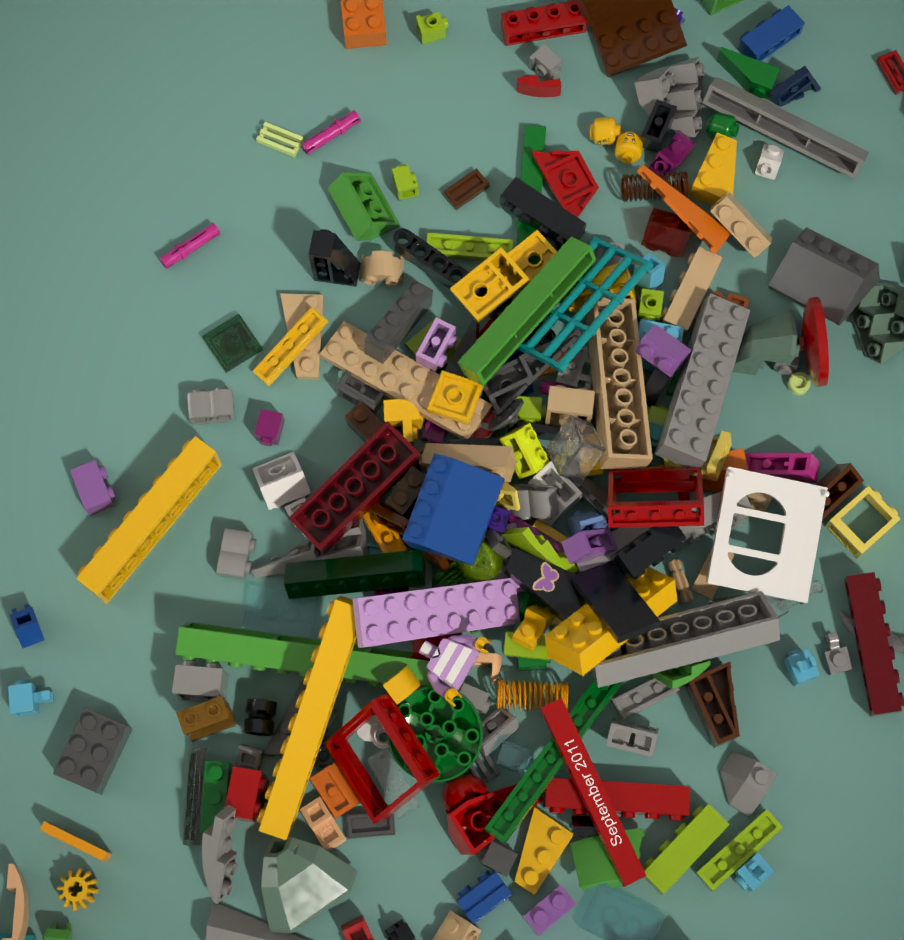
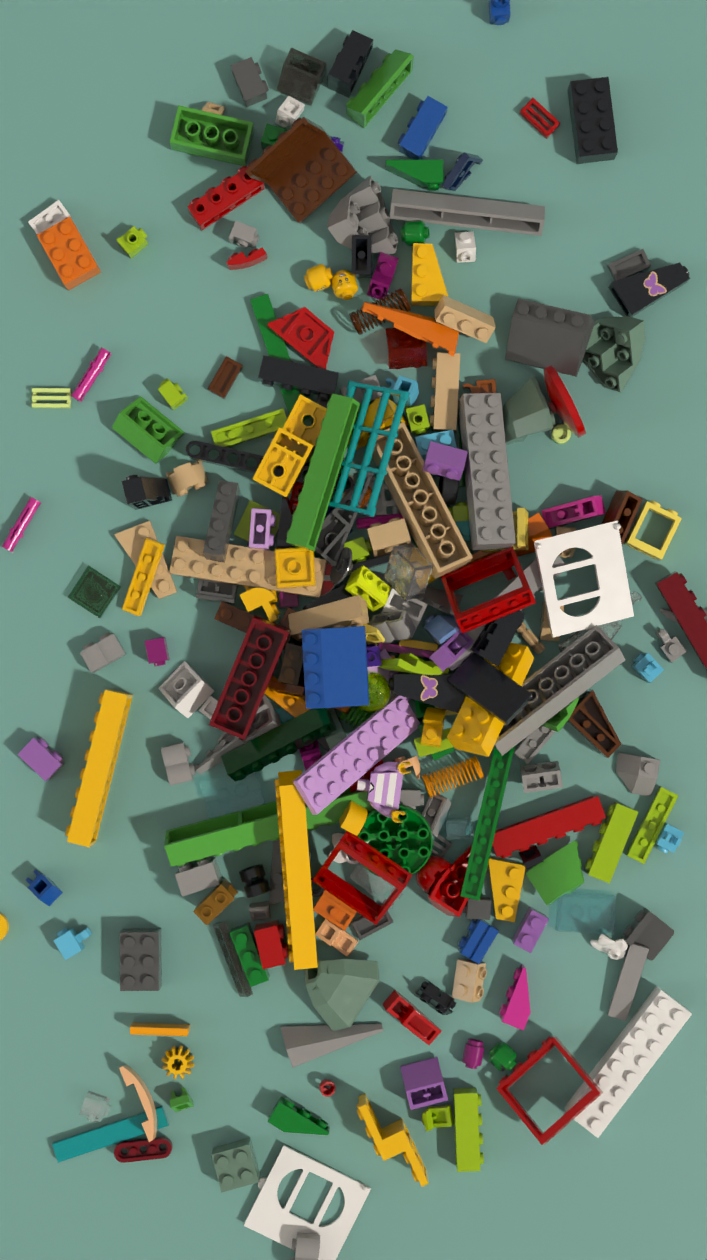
camera: 25 degrees left, 15 degrees up
(217, 856) = (272, 998): light grey slope -> none
(498, 543) = (380, 676): dark grey tile -> none
(592, 792) = (527, 833): red tile -> none

